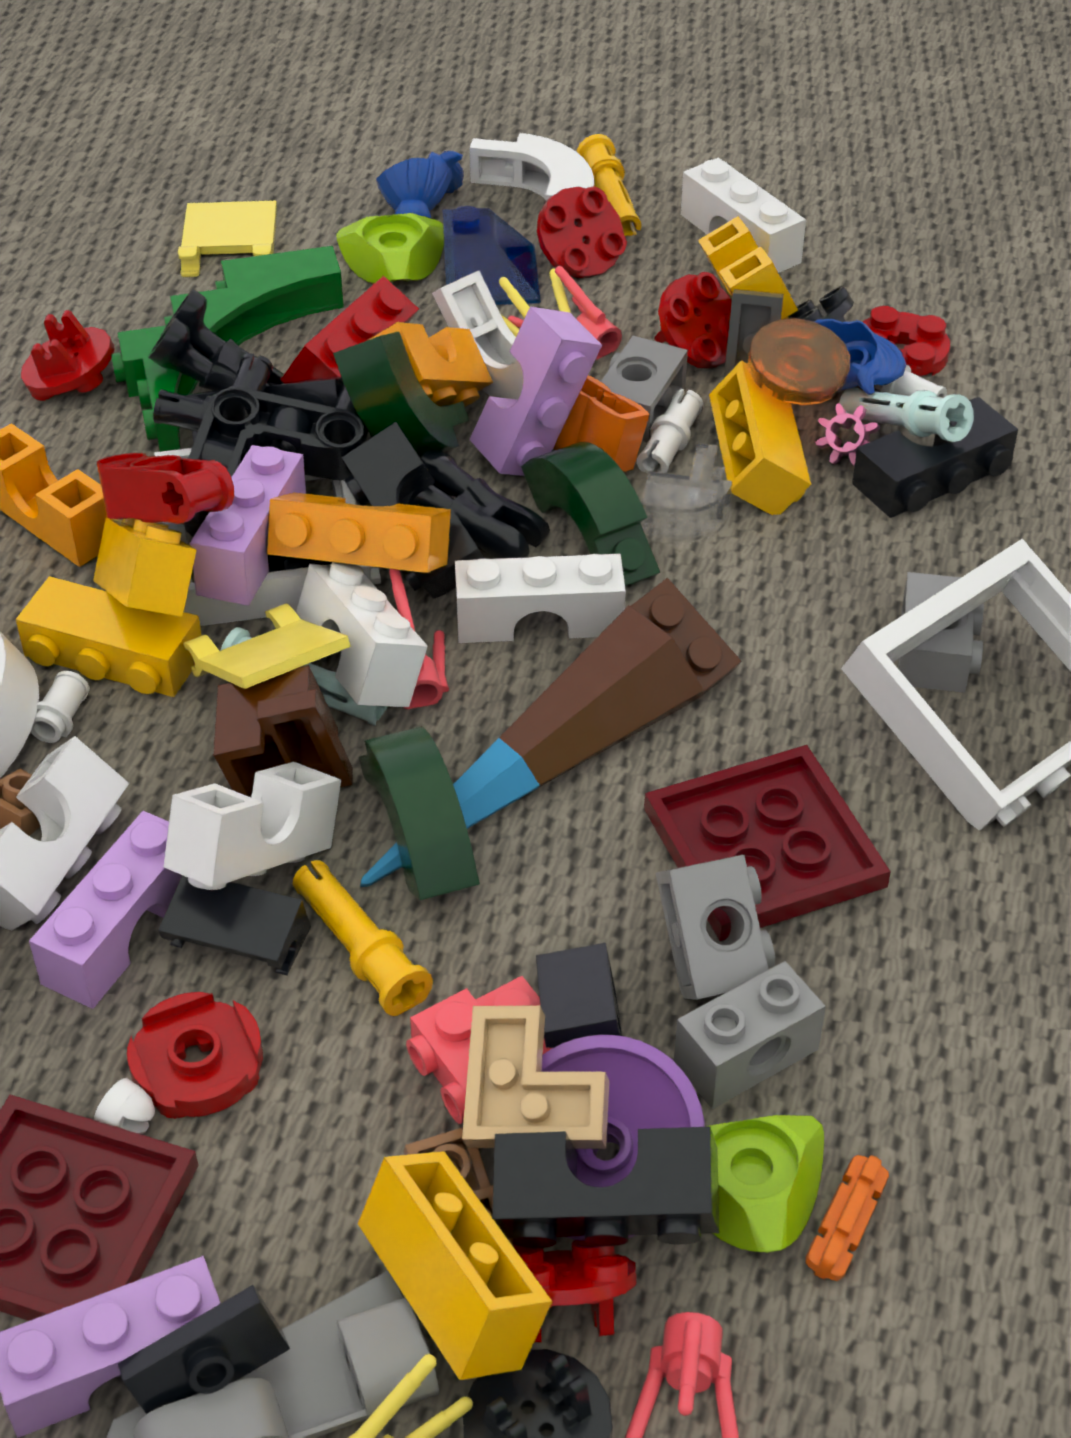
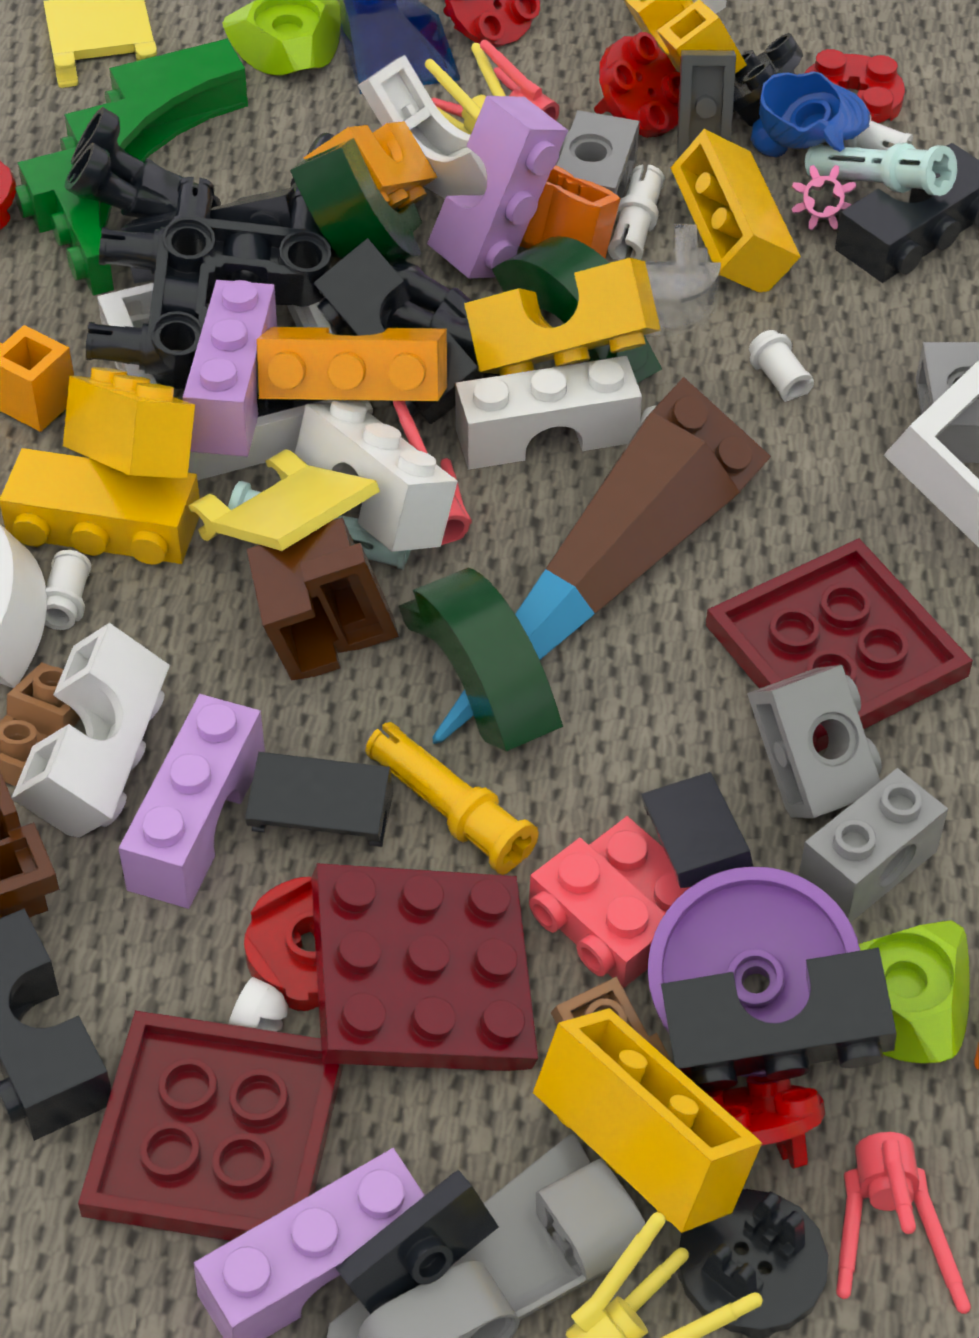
camera: 10 degrees left, 5 degrees up
(163, 487) = (140, 340): red piece -> none
(229, 836) = (307, 709): white arch -> none
(286, 1093) = (421, 969): none -> dark red plate
(363, 319) = (279, 141): red arch -> none
(513, 1094) = (664, 944): tan plate -> none
(608, 509) = (611, 310): none -> yellow arch
(769, 573) = (774, 355): none -> white pin
(798, 361) = (765, 123): clear orange tile -> none

